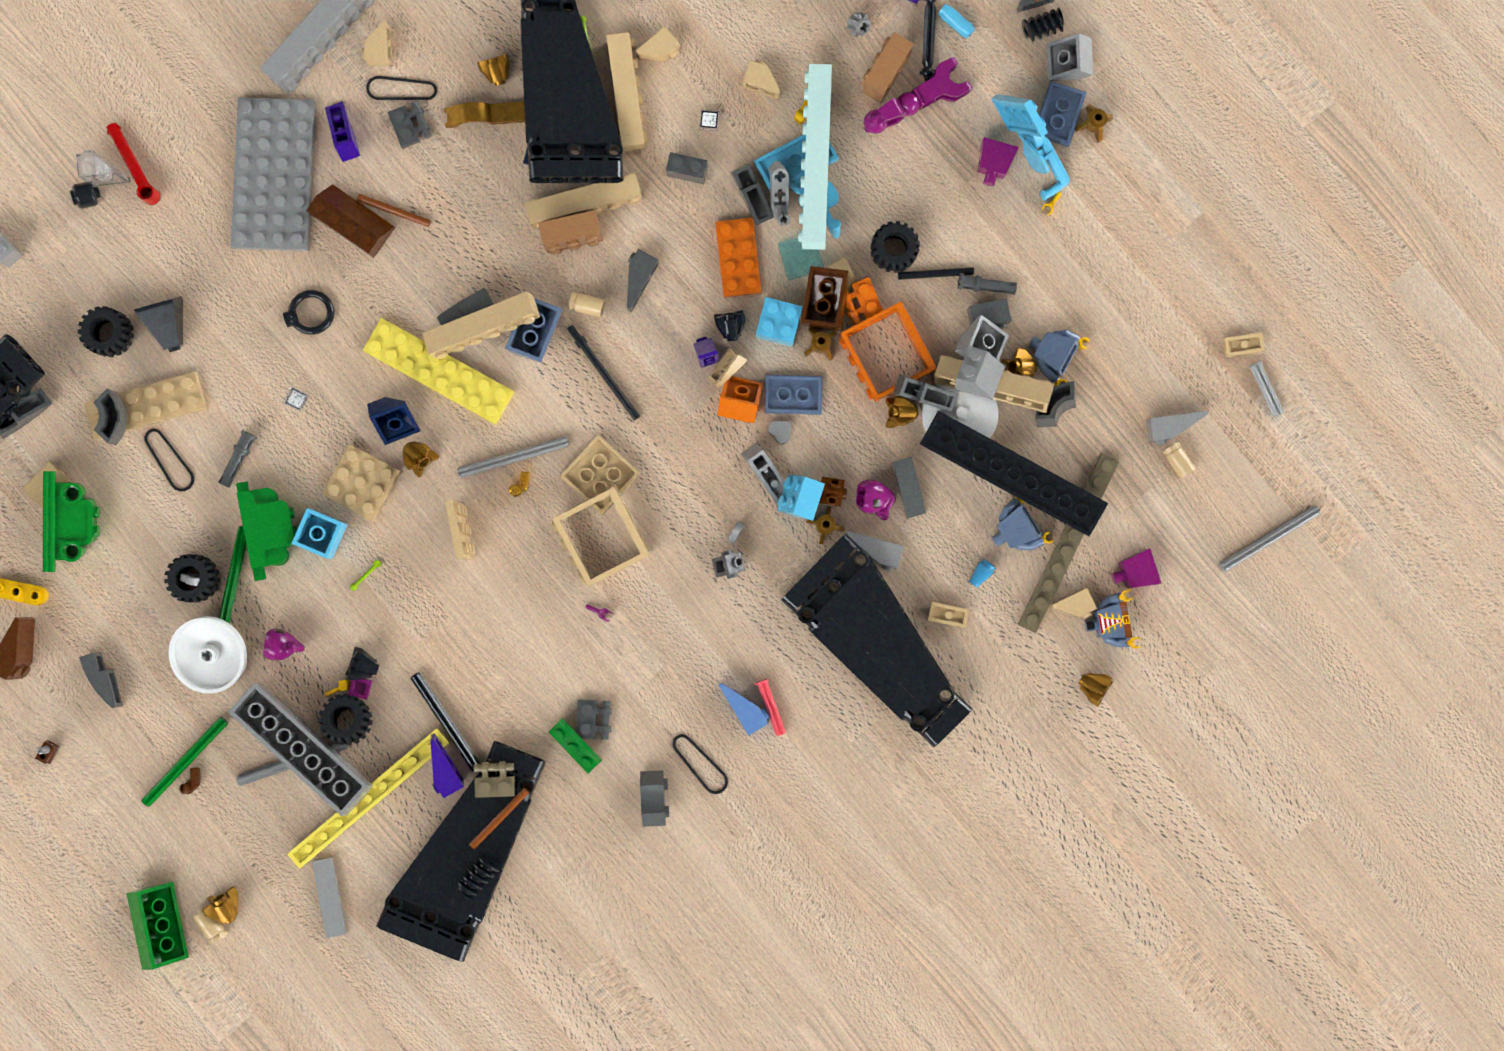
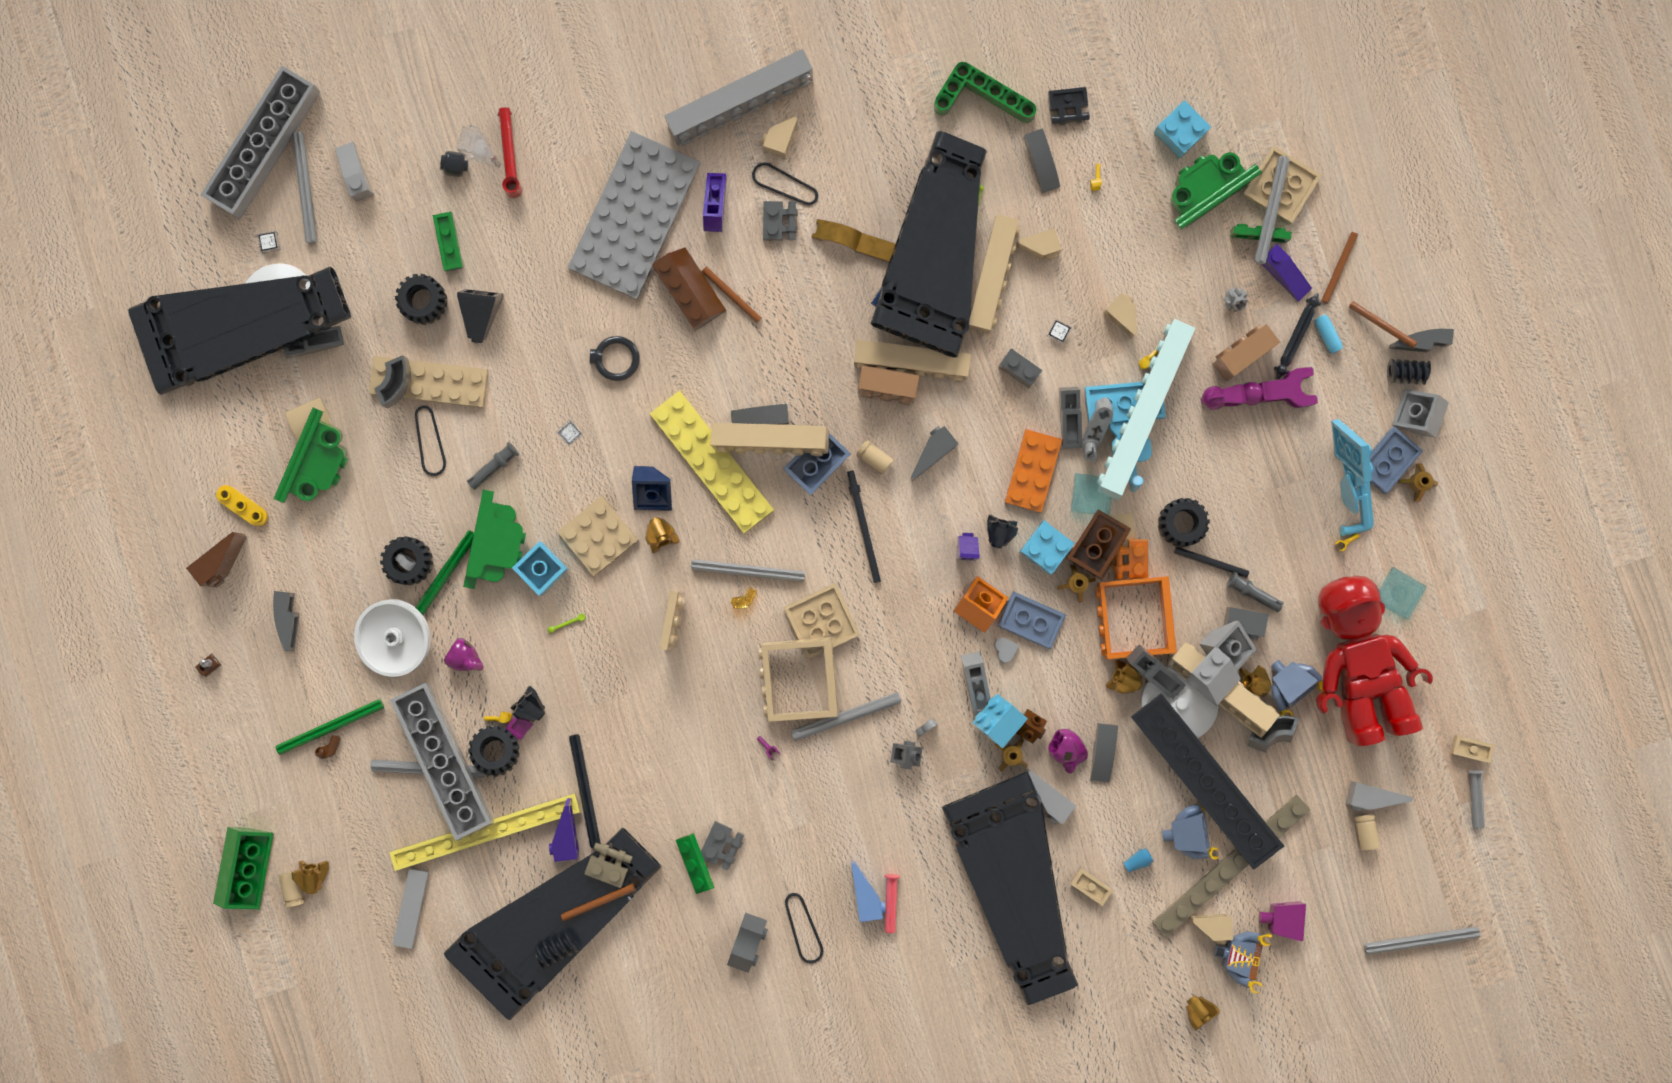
camera: 25 degrees right, 0 degrees up
(109, 268) = (448, 241): none -> green plate
(495, 69) = (880, 203): pearl gold brick -> none
(659, 553) = (846, 716): none -> light grey axle
(727, 366) = (987, 562): tan slope -> none
(995, 159) = (1311, 479): magenta torso -> none
(1114, 306) = (1366, 664): none -> red piece
(1119, 230) = (1401, 593): none -> clear light blue tile

